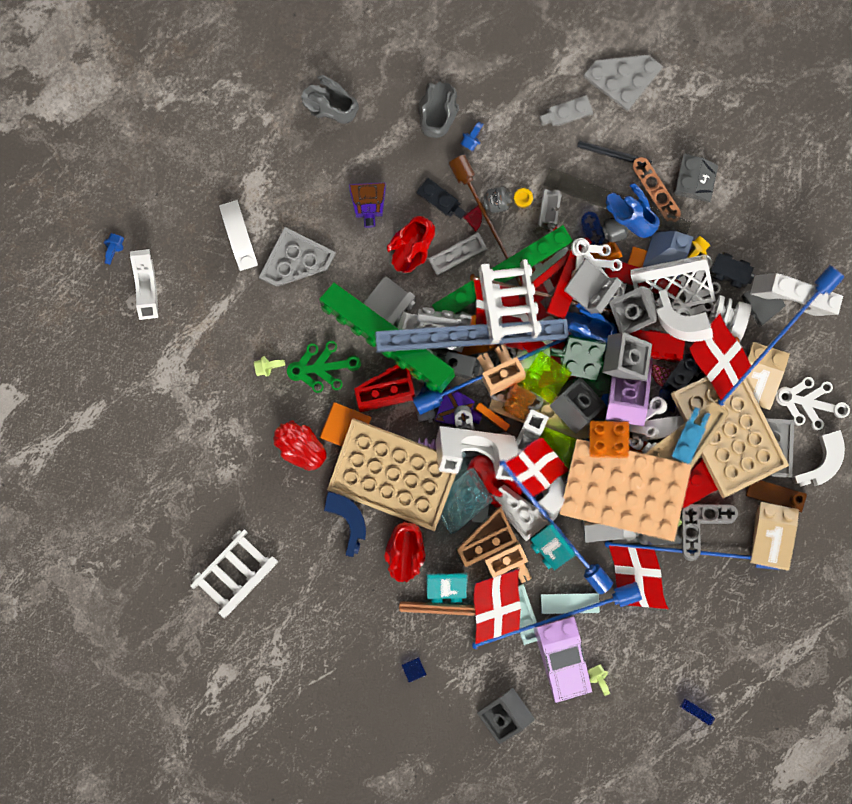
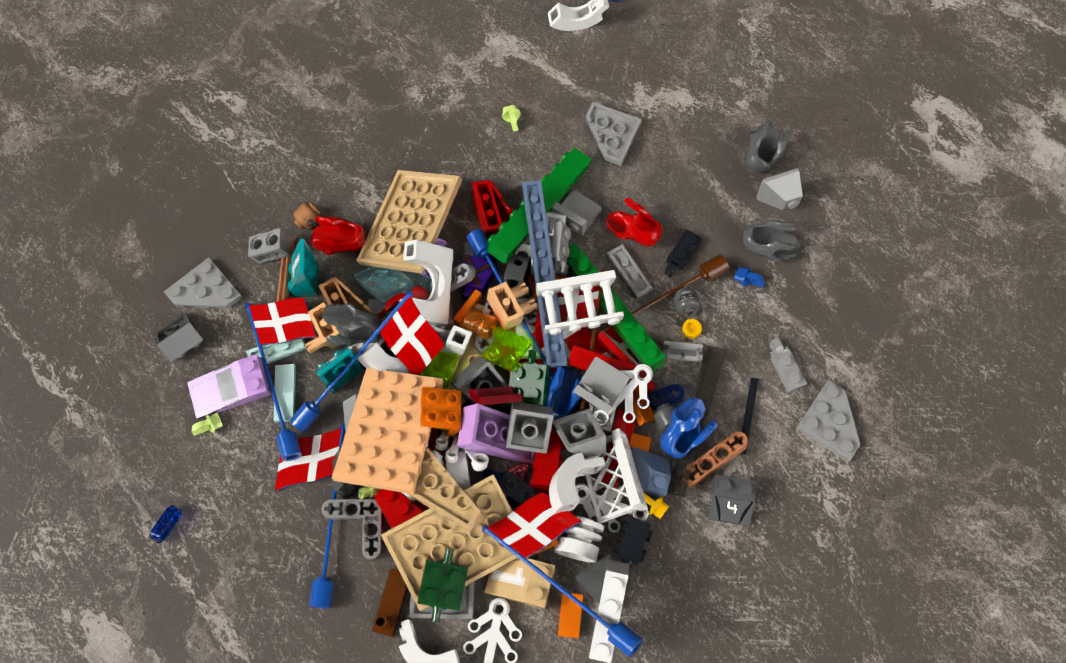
camera: 100 degrees right, 15 degrees down
(238, 235) = (629, 77): white arch -> none
(252, 577) = (318, 116): white fence -> none
(299, 446) = (437, 141): red hair -> none
(320, 367) = (511, 159): green plant -> none
(338, 423) = (467, 175): orange slope -> none
(349, 511) = (371, 193): dark blue arch -> none
(368, 201) = (673, 187): torso -> none
(376, 586) = (306, 215): none -> medium nougat head
(384, 90) = (781, 190): none -> light grey slope
(411, 623) = (269, 246): none -> light grey brick
(413, 670) = (229, 255): clear blue tile -> none
(451, 694) = (203, 288): none -> light grey plate
(474, 218) = (665, 284): dark red tile -> none
(517, 526) = (351, 323): none -> dark grey hair
(597, 388) = (494, 395): none -> dark red slope
(690, 438) = (441, 490): dark azure hinge -> none
(768, 443) = (442, 585): none -> dark green plate
(774, 535) = (342, 597): tan slope -> none
(795, 334) = (570, 617): none -> orange tile

